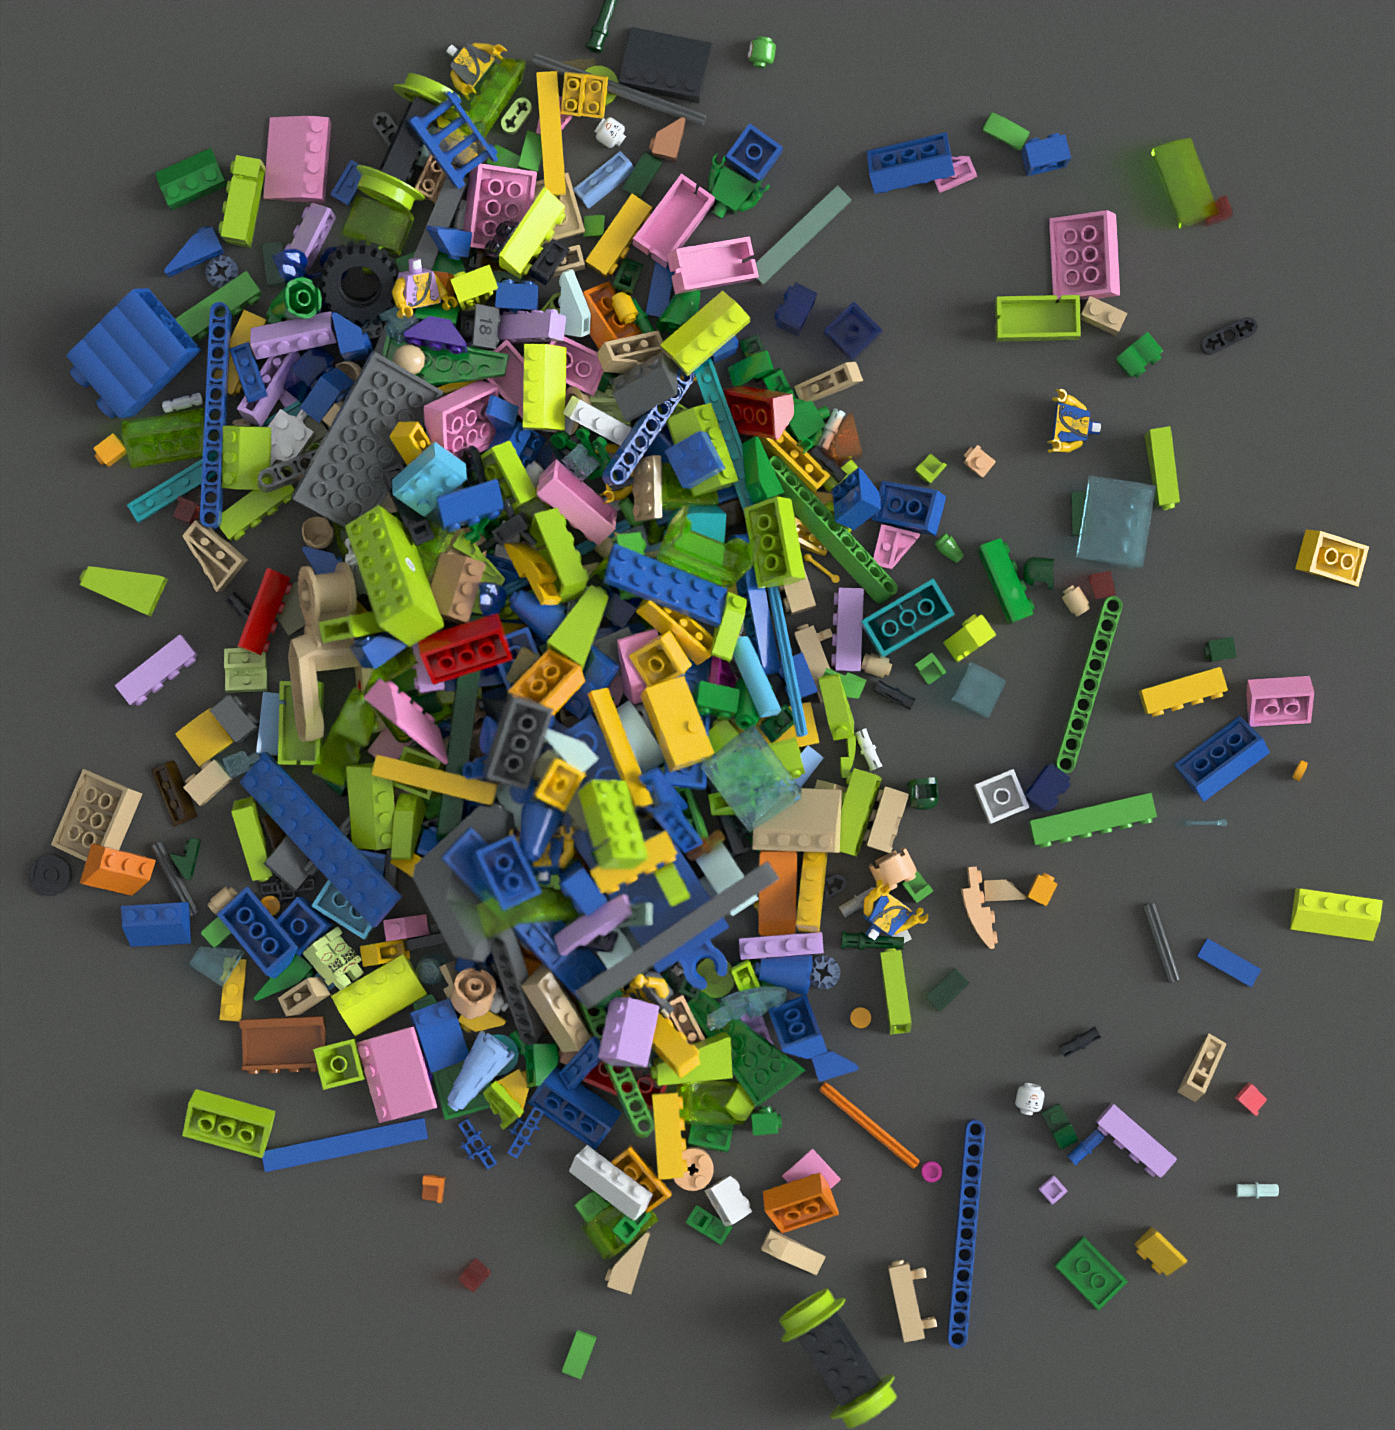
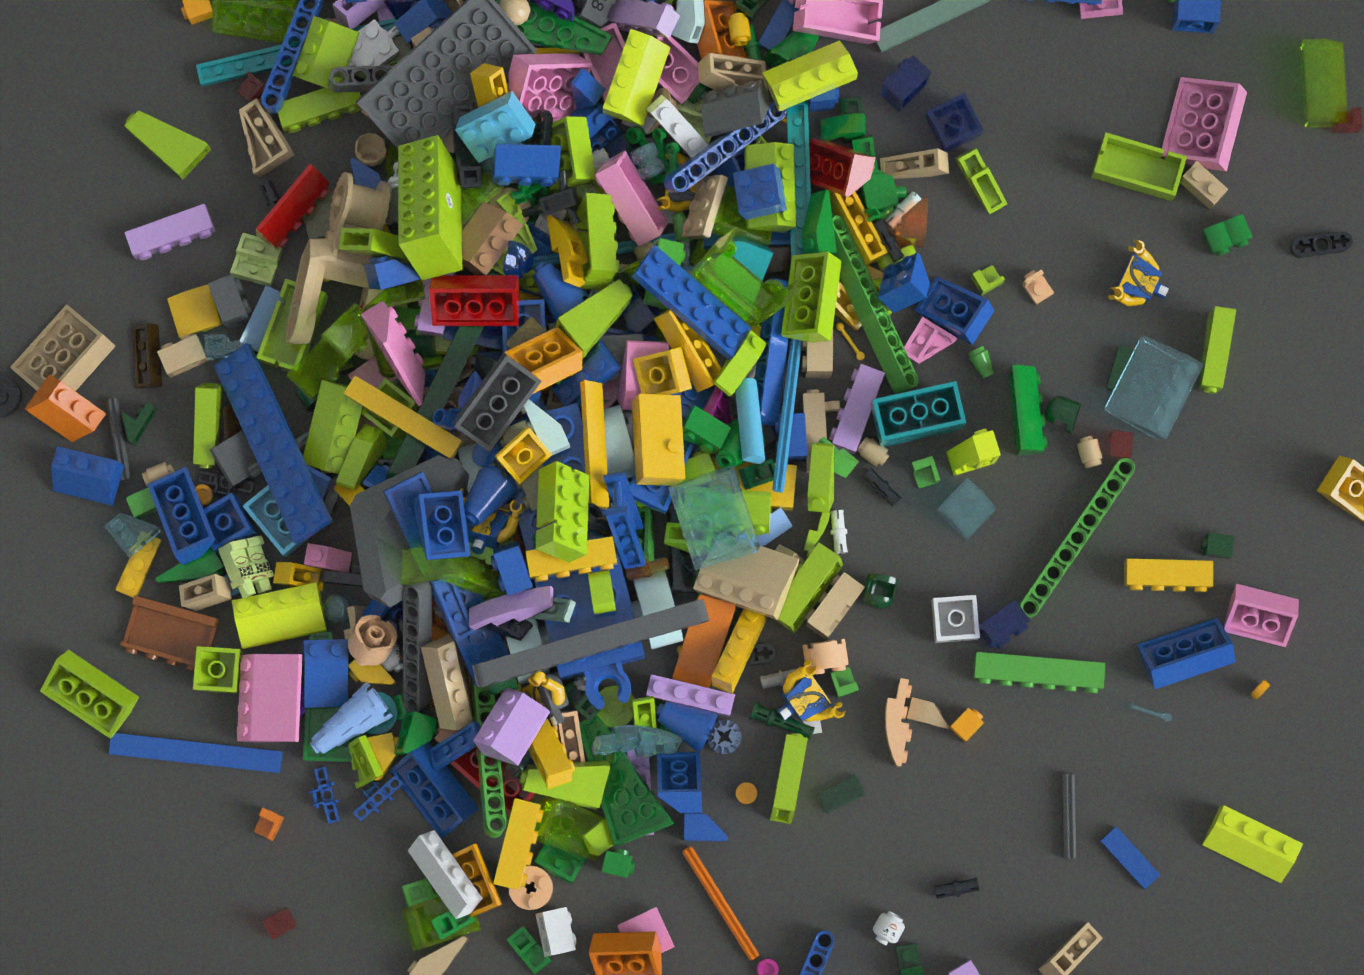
camera: 15 degrees right, 5 degrees down
(895, 377) = (981, 180): none -> lime slope

